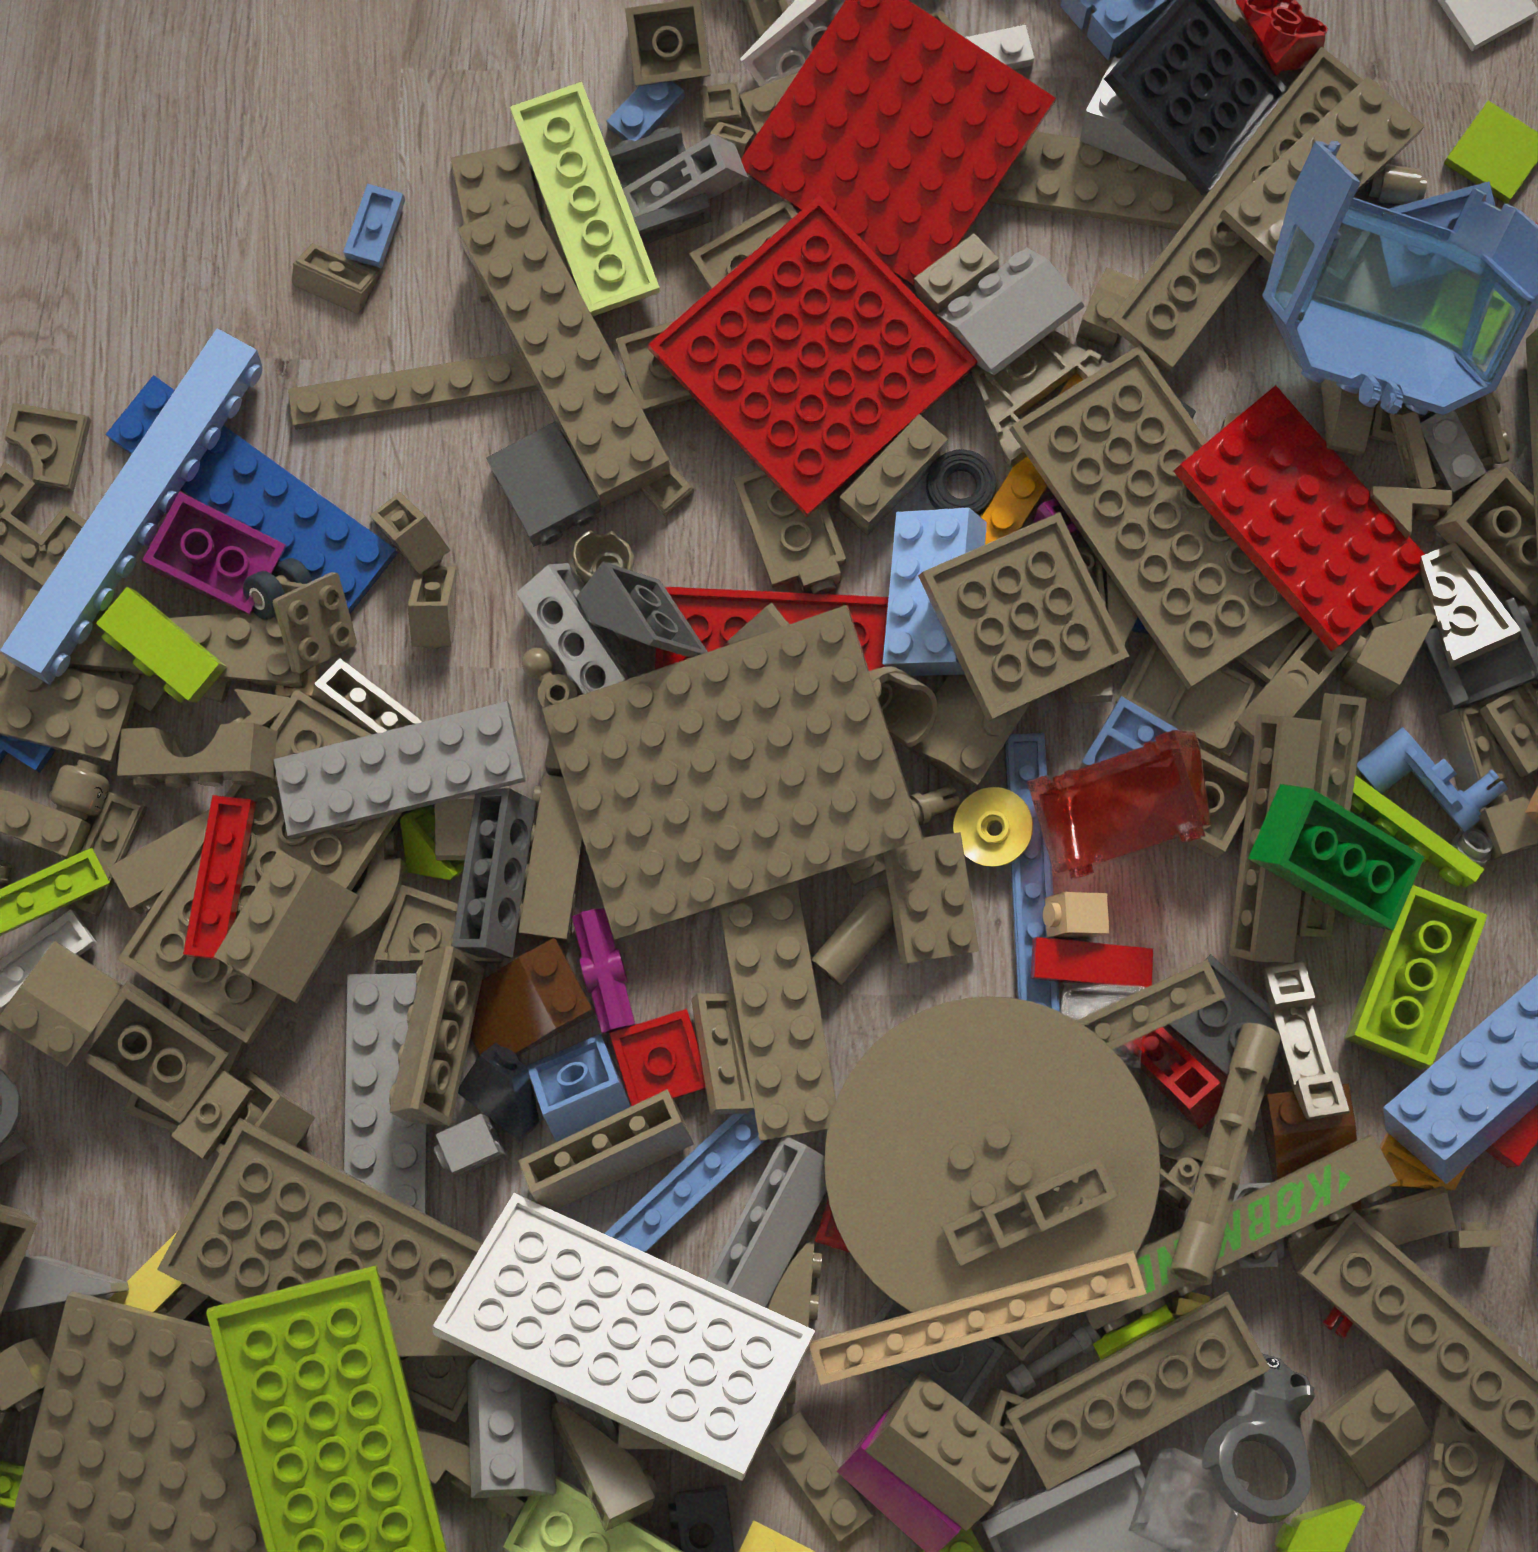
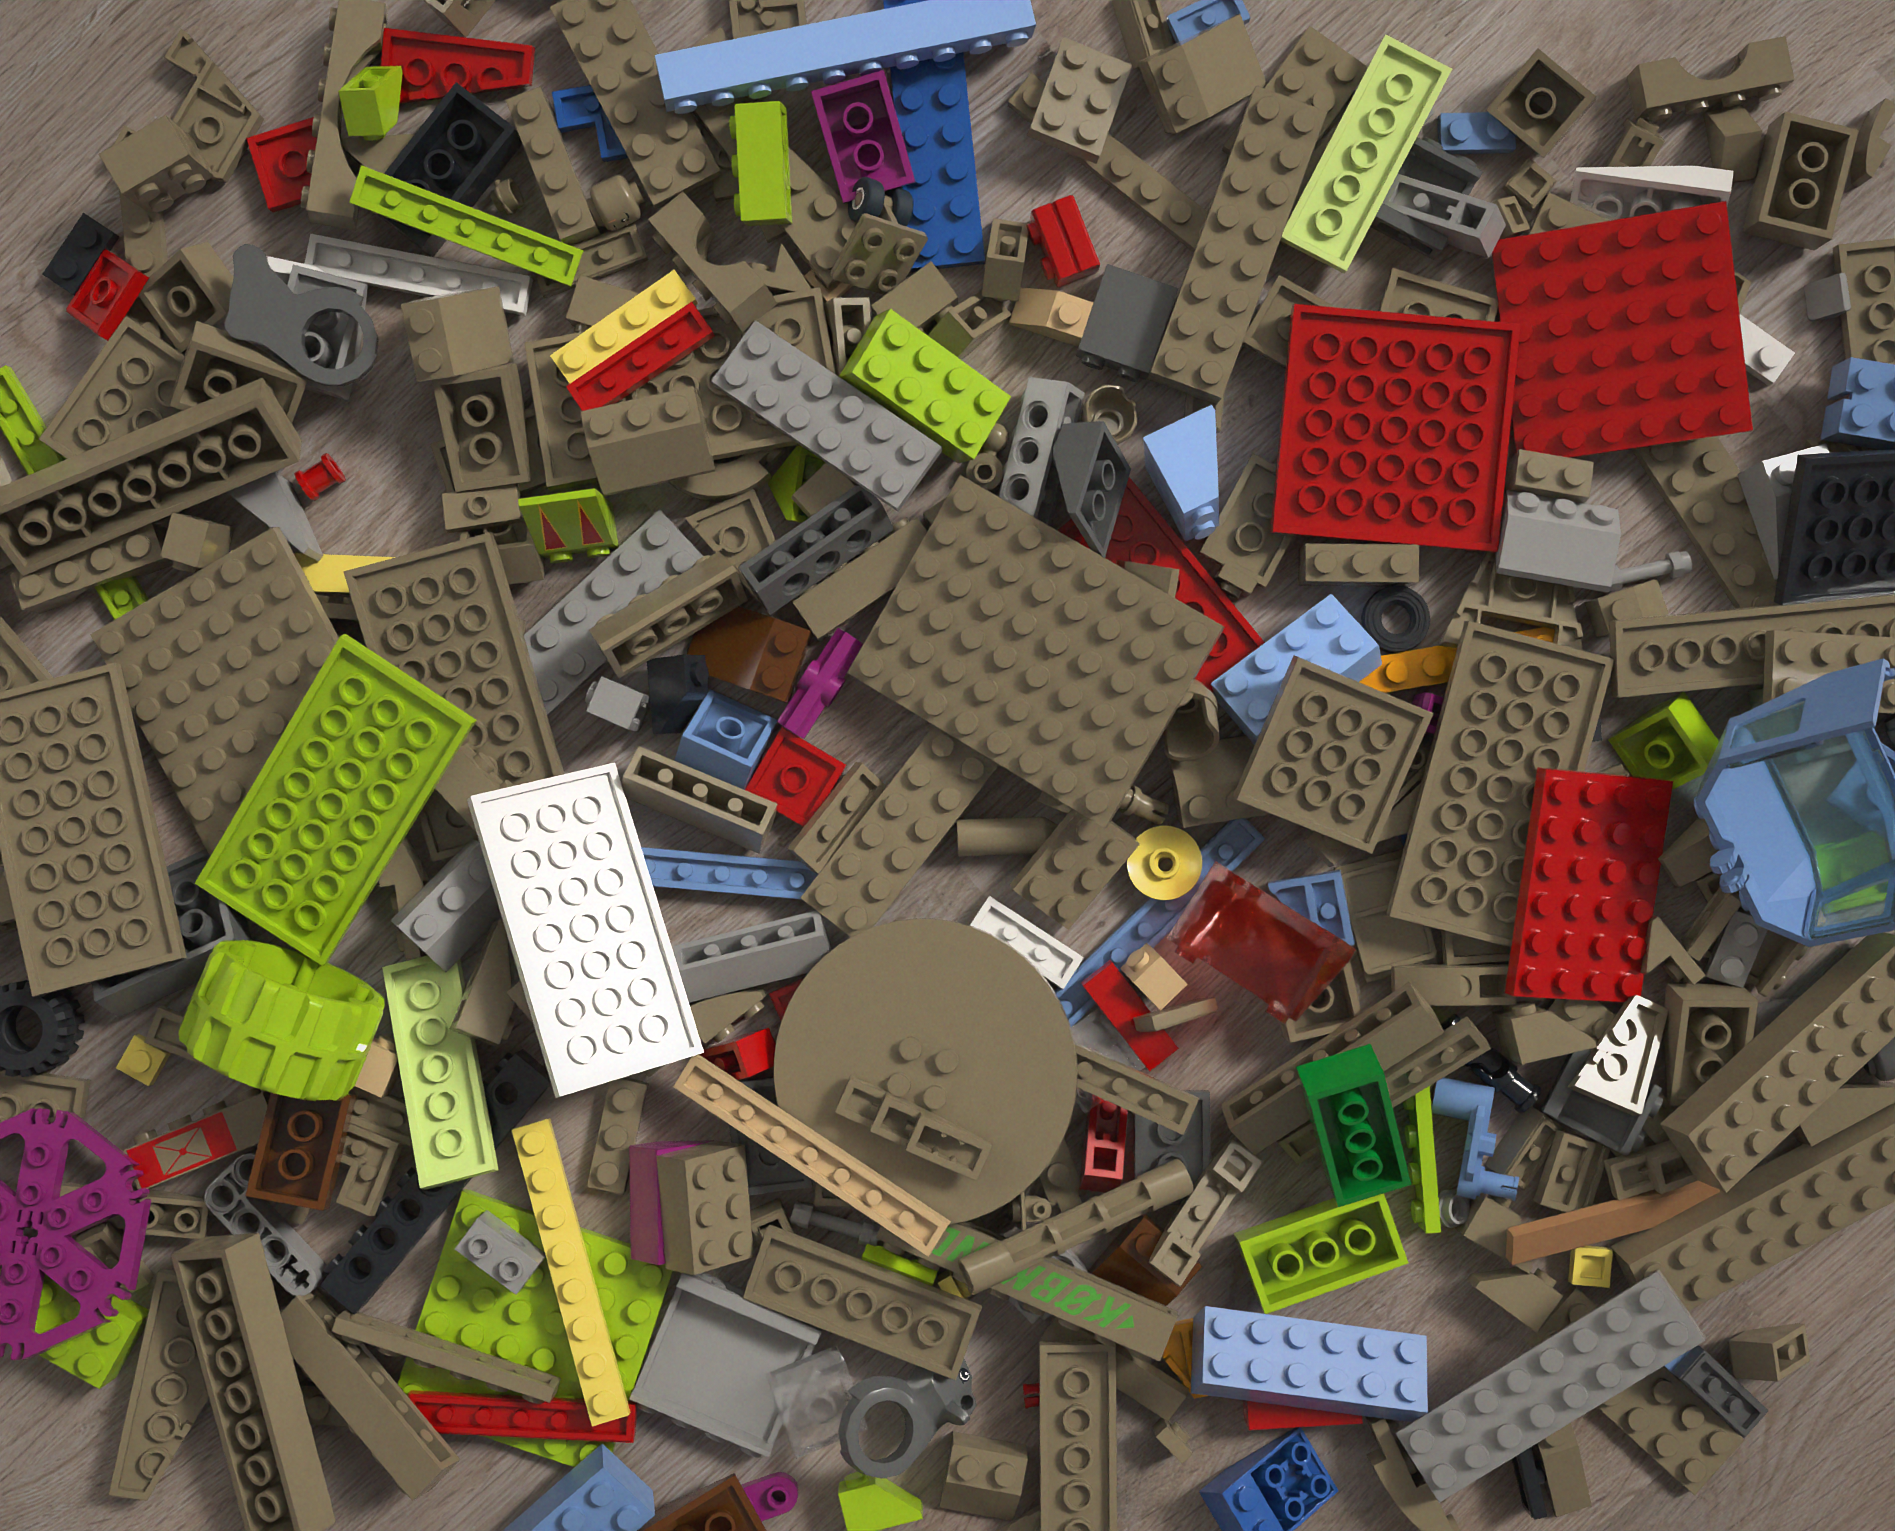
camera: 45 degrees right, 10 degrees up
(63, 1226) = (320, 477): none -> red bush
(179, 869) = (623, 326): none -> light yellow plate
(292, 1052) = (570, 524): none -> lime slope
(343, 370) = (1079, 100): none -> dark tan plate
(379, 632) = (920, 298): none -> dark tan brick
(411, 266) = (1202, 74): none -> dark tan slope
(437, 477) = (1063, 241): none -> red brick
(447, 673) = (925, 385): none -> lime brick
(485, 534) = (1052, 314): none -> tan slope
(701, 538) = (1186, 471): none -> light blue slope
(846, 1304) = (743, 1054): none -> red slope
(991, 979) = (1046, 953): none -> white plate
(1107, 244) = (1674, 564): none -> light grey bar
(1123, 924) = (1175, 1014): none -> dark tan tile
(1241, 365) = (1667, 742): none -> lime slope
(1401, 712) = (1506, 1077): none -> black piece

